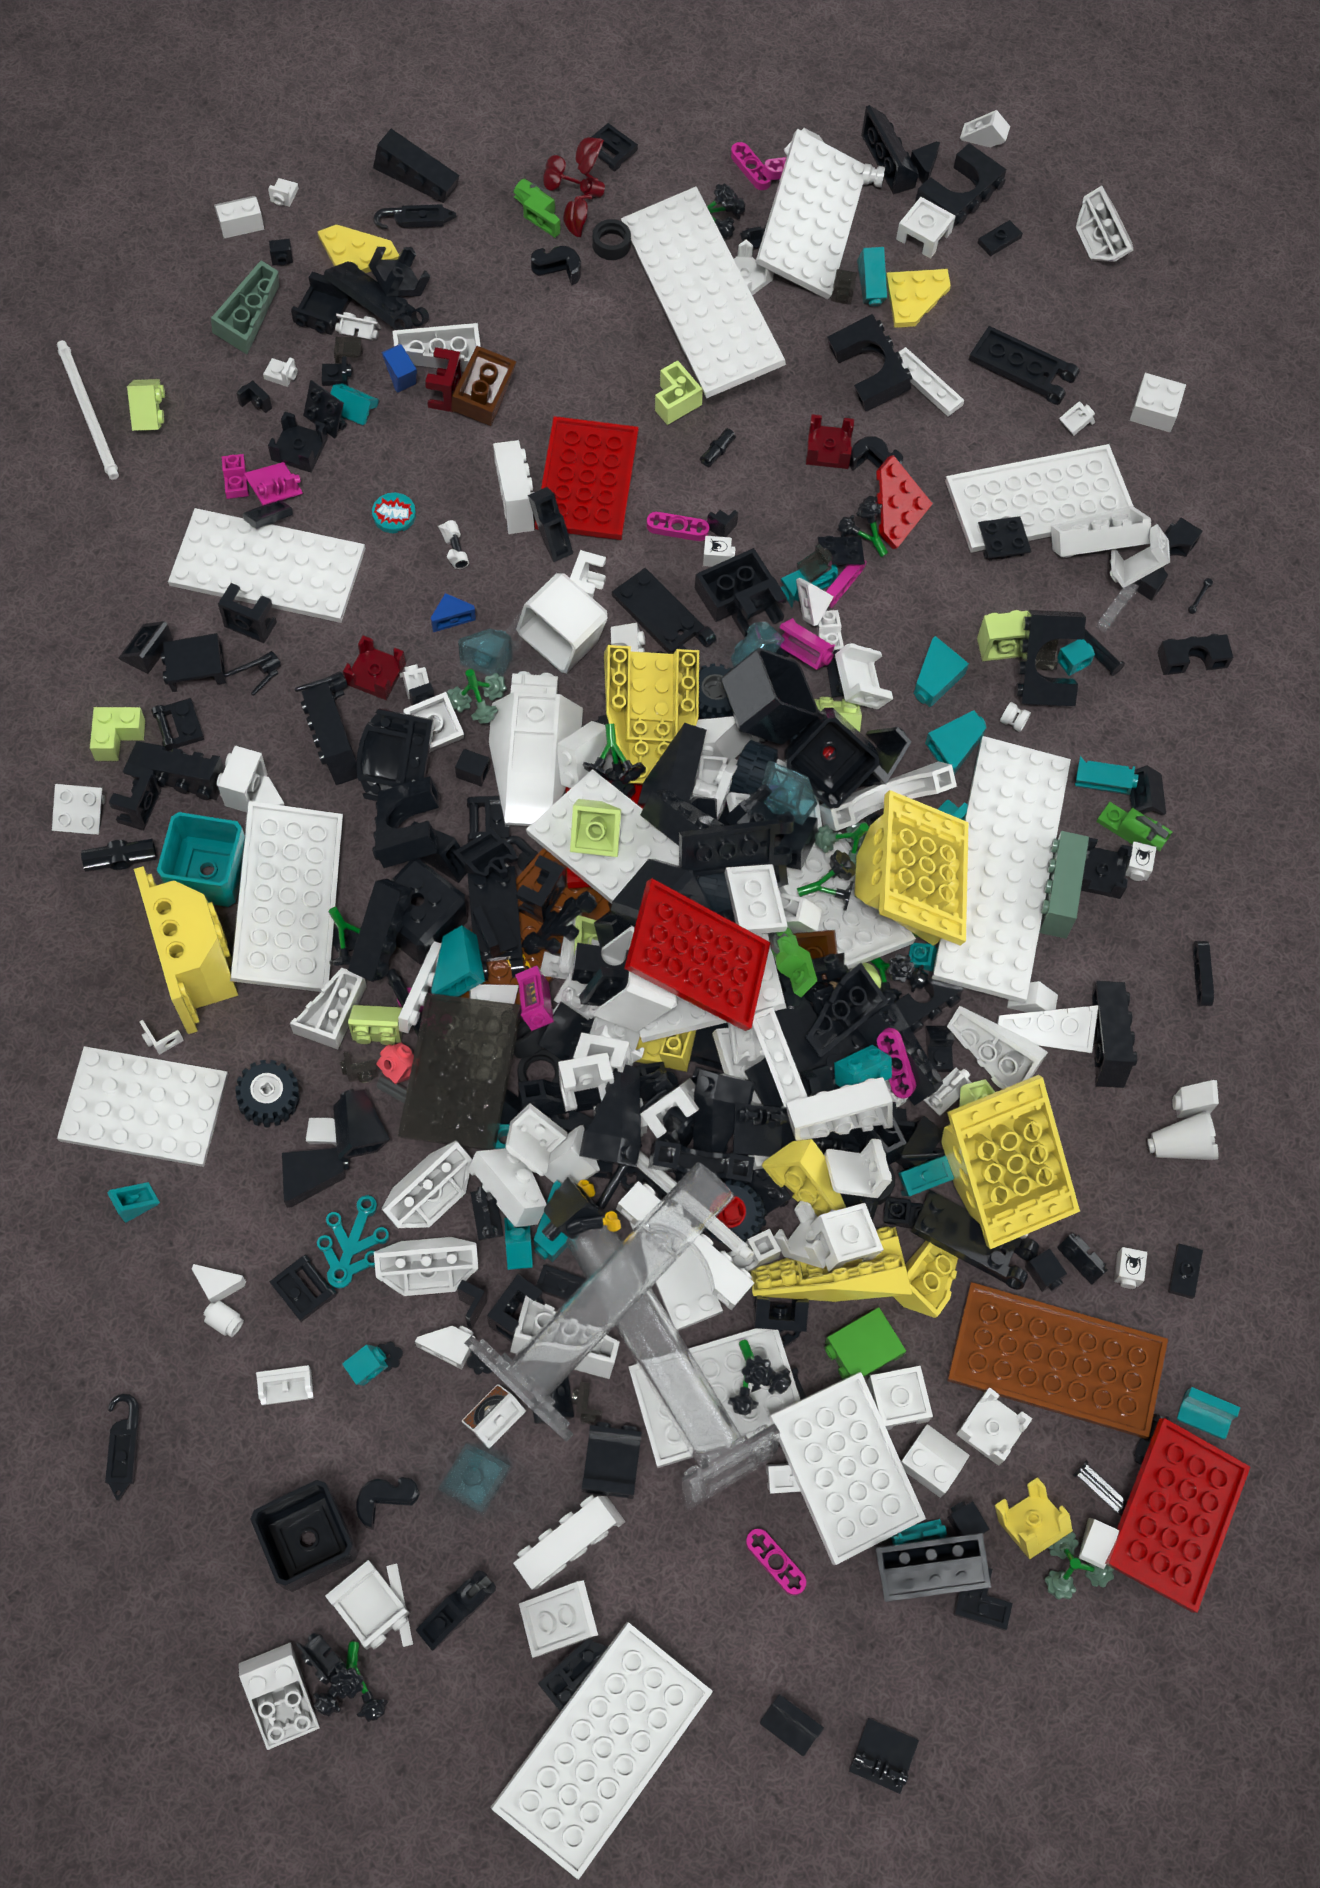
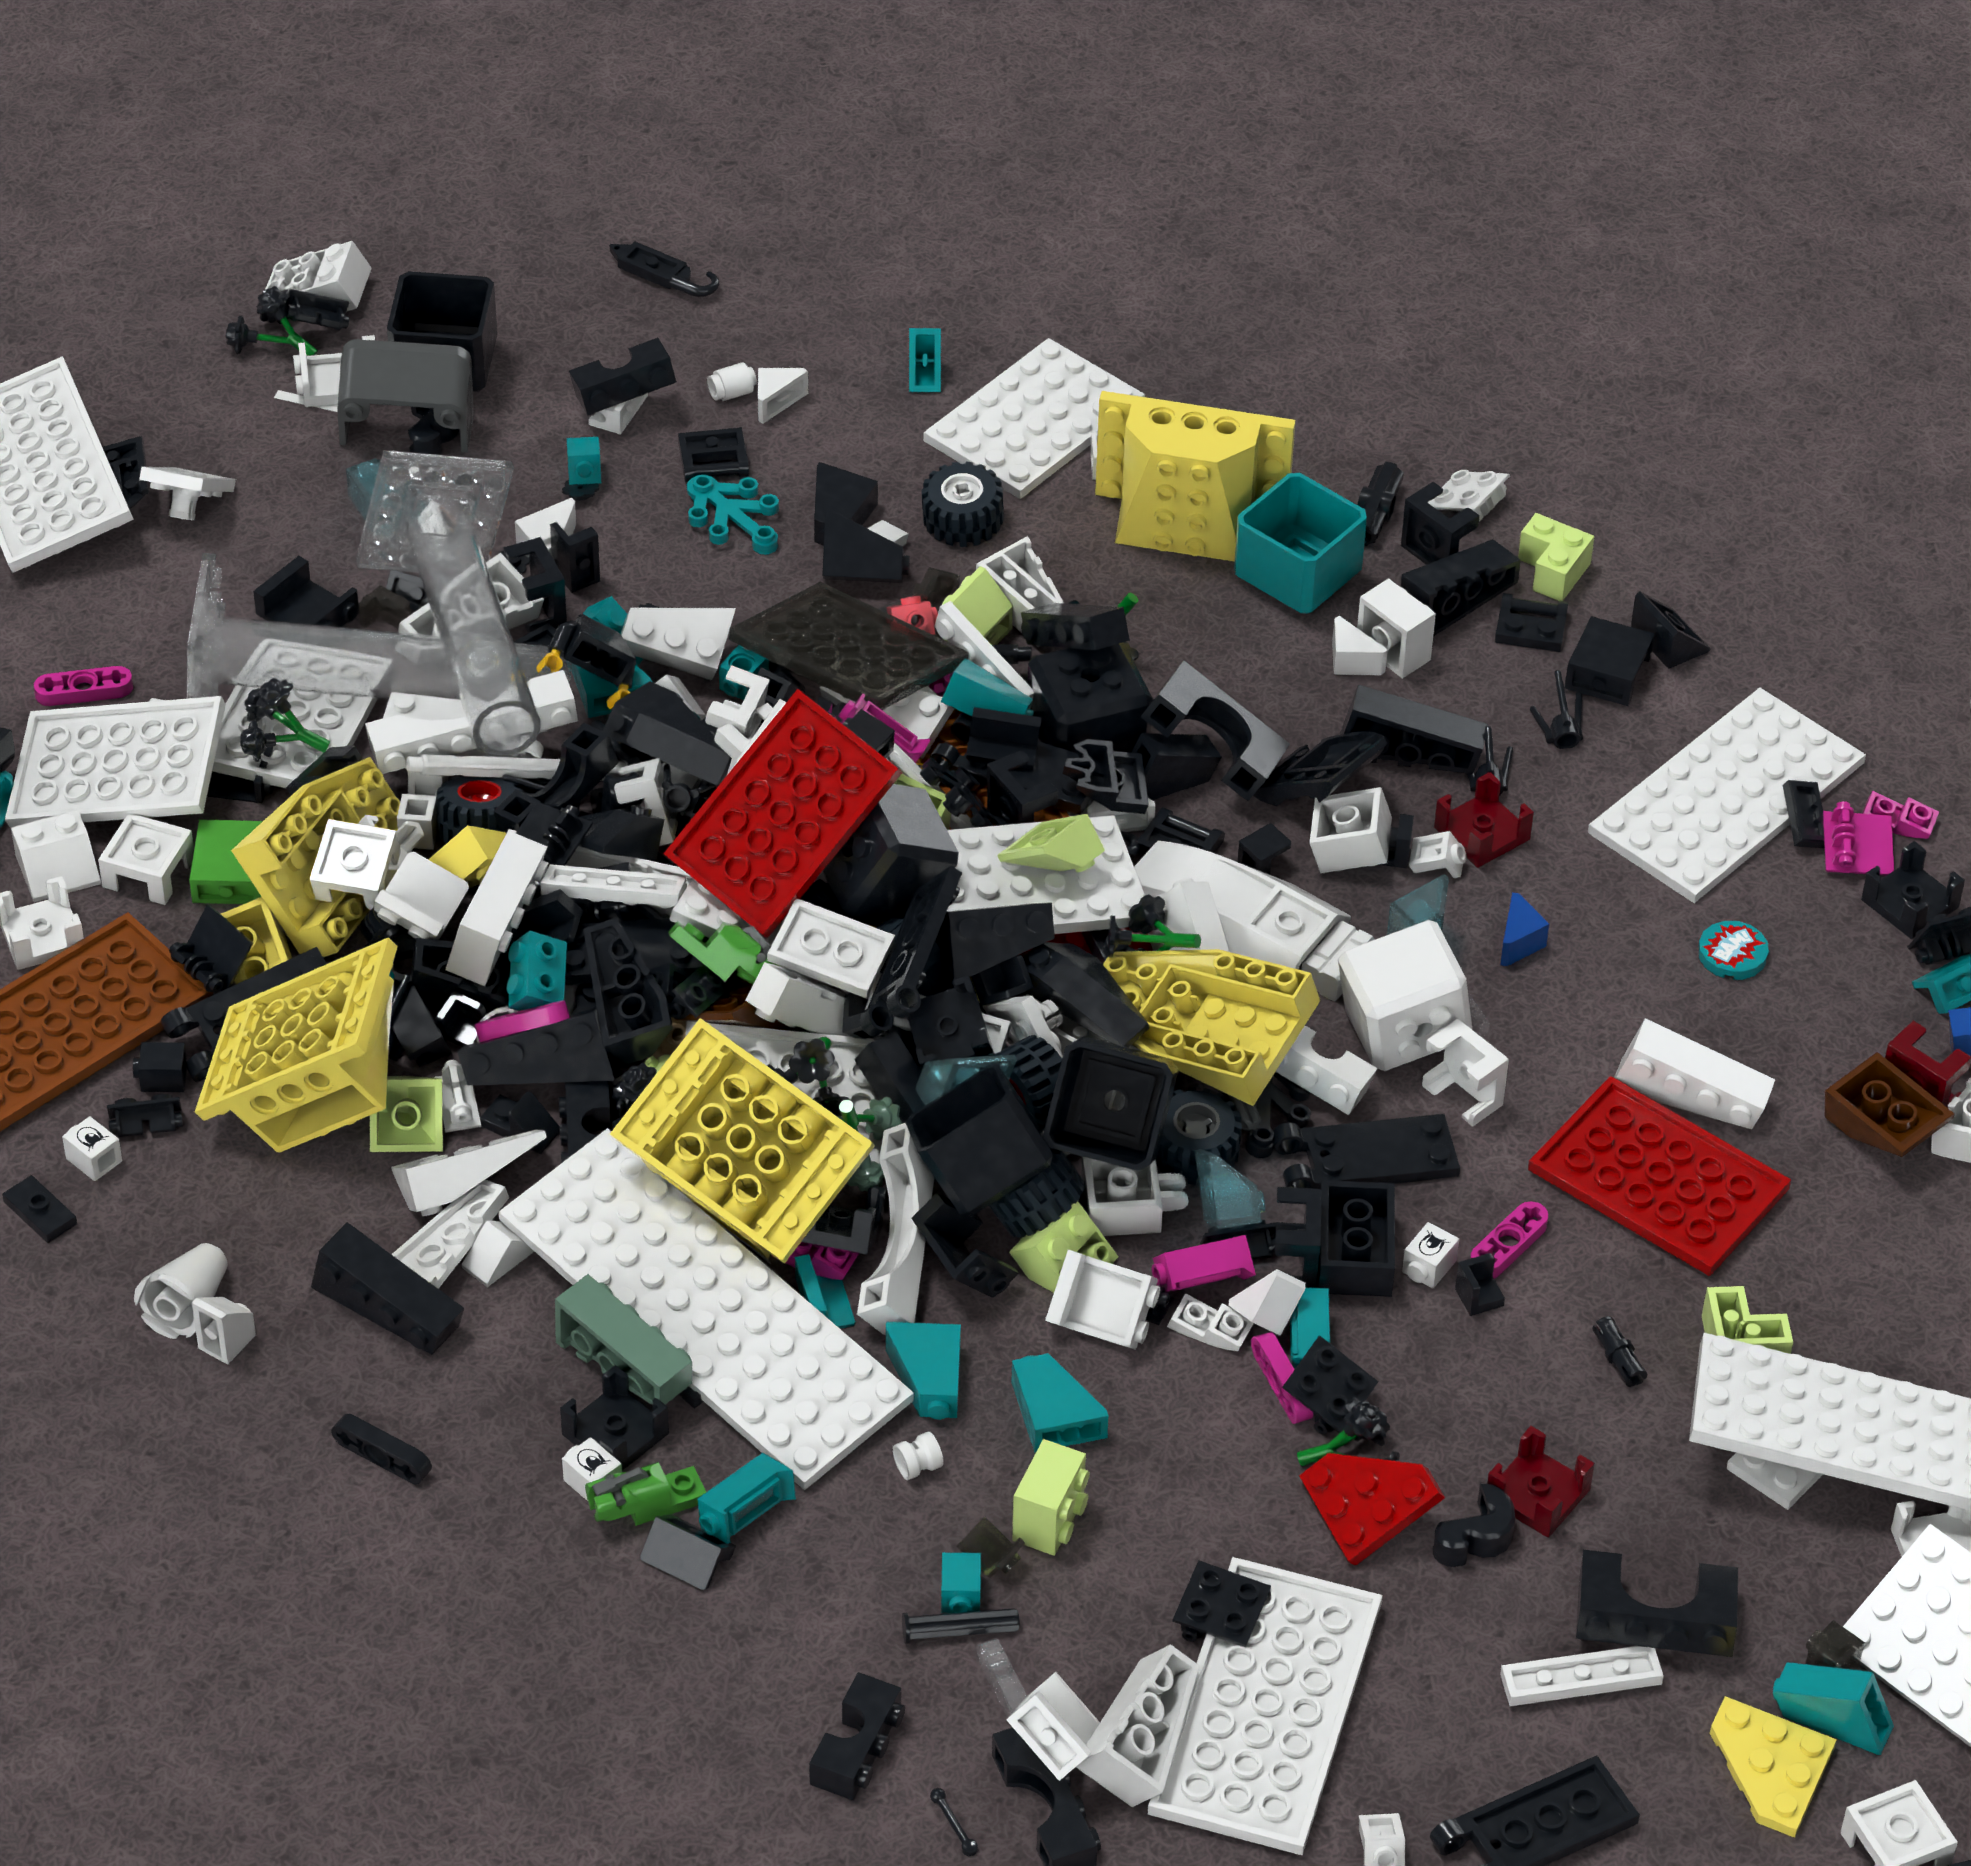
camera: 125 degrees right, 20 degrees down
(246, 620) = (1644, 716): black panel -> none
(286, 897) = (1211, 608): white plate -> none
(300, 1387) = (605, 387): none -> black arch
(390, 1516) = (406, 377): none -> dark grey windscreen
(426, 1265) = (658, 544): white wedge -> none
(429, 1188) = (735, 574): white wedge -> none
(451, 534) = (1653, 986): white piece -> none
(456, 1609) = (272, 424): black plate -> none
(492, 688) = (1376, 884): sand green plant -> none
(533, 1138) = (702, 662): white bracket -> none
(550, 523) = (1590, 1072): black slope -> none
(568, 1540) = (257, 531): white wedge -> none
(816, 563) = (1316, 1319): clear smoke bracket -> none
(956, 1290) = (213, 951): none -> black hinge
(1040, 629) = (975, 1495): black arch -> none

